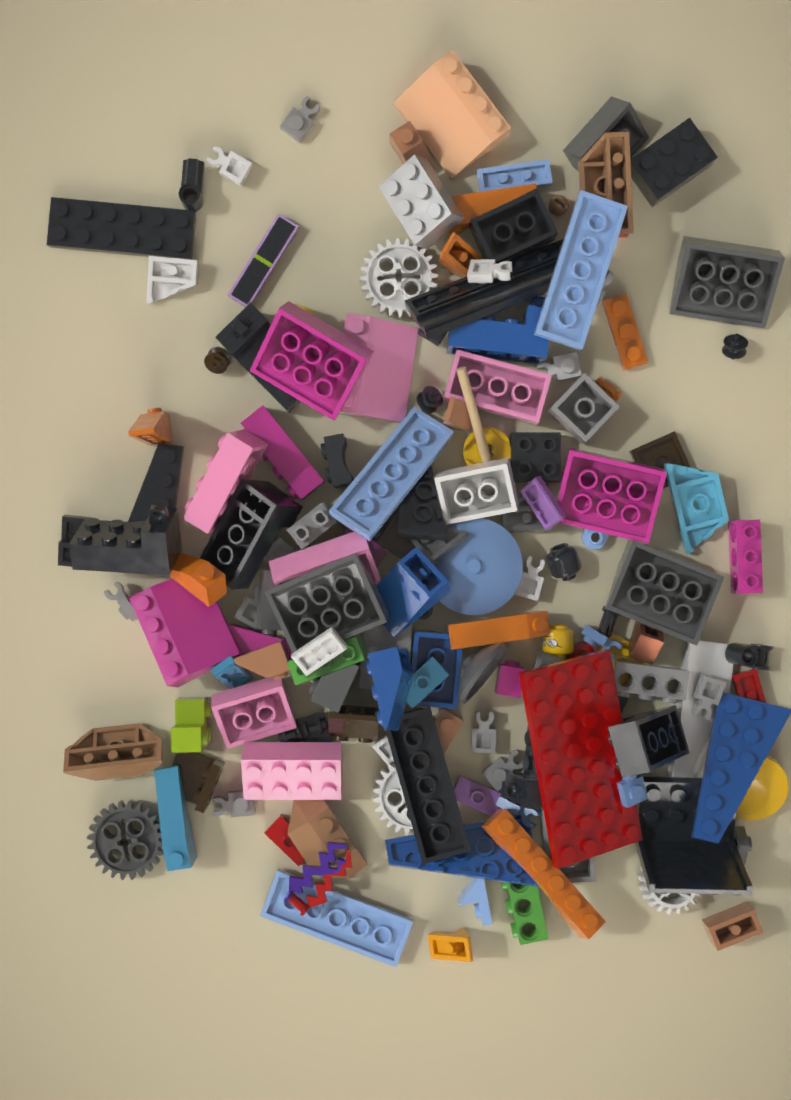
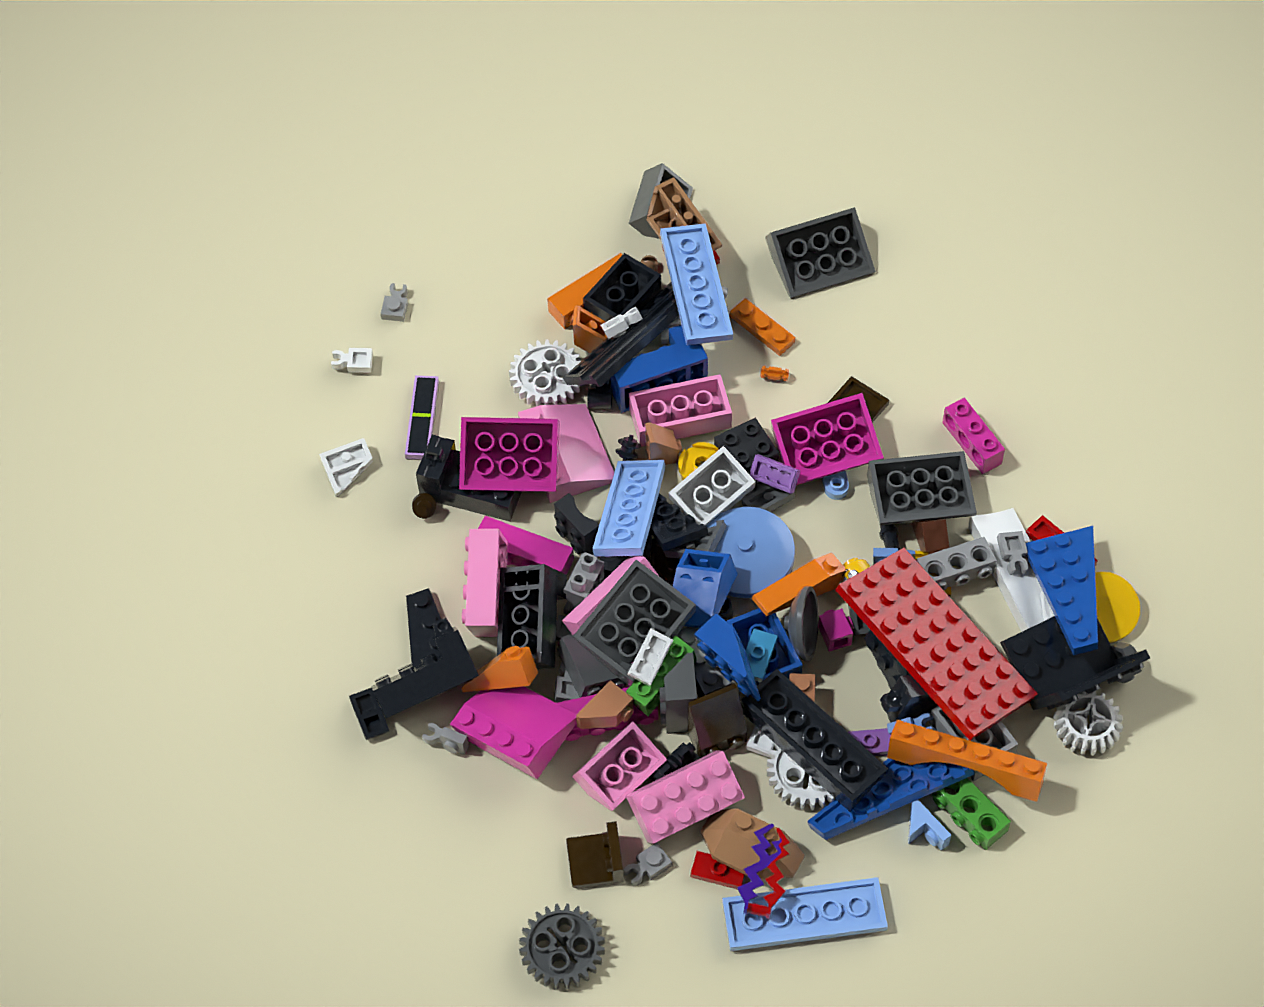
camera: 25 degrees left, 30 degrees down
(114, 753) = (511, 870): medium nougat wedge -> none
(121, 228) = (279, 450): black plate -> none
(152, 427) = (397, 574): orange slope -> none
(174, 819) = (598, 899): dark azure slope -> none
(191, 725) = (568, 808): lime brick -> none
(192, 183) = (328, 388): black piece -> none
(231, 673) = (579, 741): dark azure plate -> none
(408, 142) = (503, 280): nougat slope -> none
(421, 202) = (534, 305): brick -> none
(451, 946) = (926, 878): light orange slope -> none
(453, 115) = (523, 241): light nougat slope -> none
(473, 414) = (671, 430): tan bar -> none
(482, 737) = (841, 688): light grey plate -> none
(497, 770) = (874, 714): light grey plate -> none
(515, 175) = (598, 257): light blue plate -> none
(531, 583) = (805, 545): white plate -> none
(563, 366) = (730, 373): white plate -> none
(563, 562) = (822, 514): black head -> none
(583, 409) = (763, 391): light grey brick -> none
(632, 790) = (994, 645): medium blue plate -> none
(648, 741) = (982, 597): black hinge -> none
(671, 162) = (723, 192): black brick -> none
(696, 502) = (905, 417): medium azure wing -> none
(732, 926) = (1166, 727): nougat brick -> none
(735, 346) = (859, 292): black wheel -> none
(749, 655) = (1029, 507): black piece -> none

